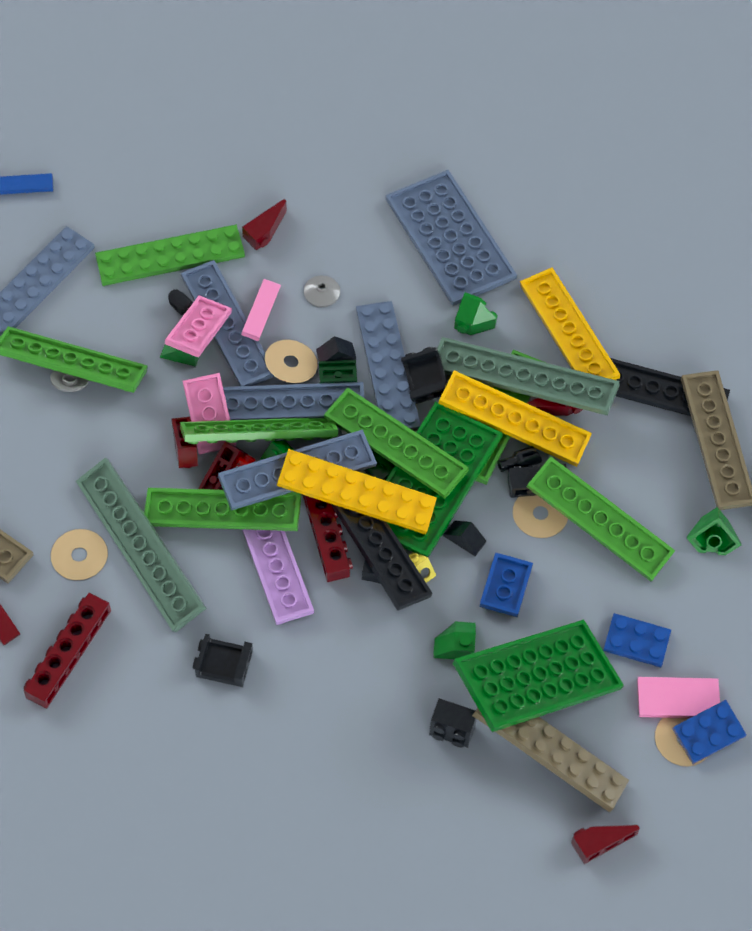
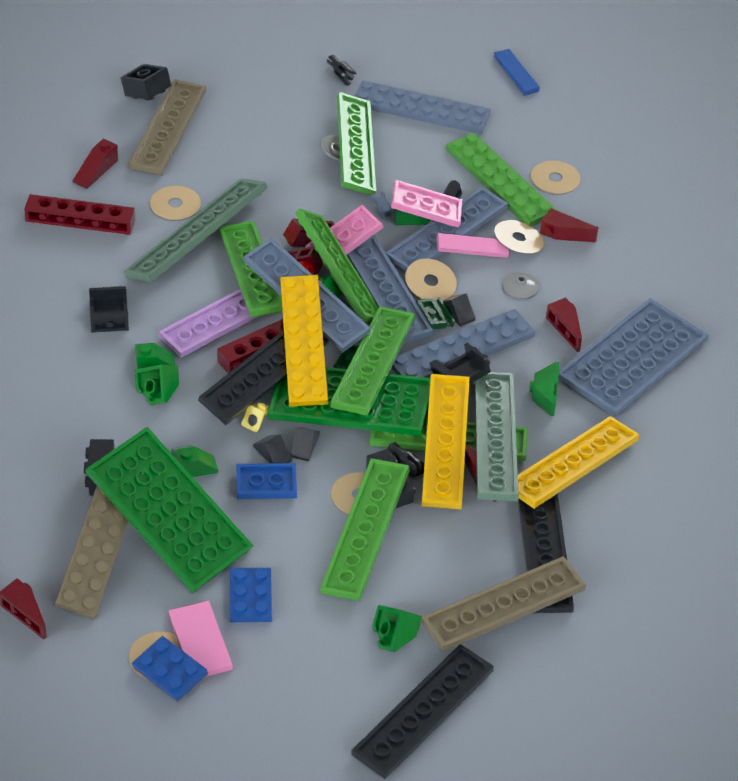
camera: 70 degrees right, 15 degrees down
(166, 367) = (382, 206): none -> sand blue bar
(168, 209) = (569, 182): none -> tan sticker
(276, 268) = (504, 233): none -> sticker
(303, 639) = (152, 354): none -> green slope
(348, 643) = (157, 382): none -> green slope
(389, 270) = (564, 318): none -> dark red slope
(466, 567) = (273, 449): none -> black slope

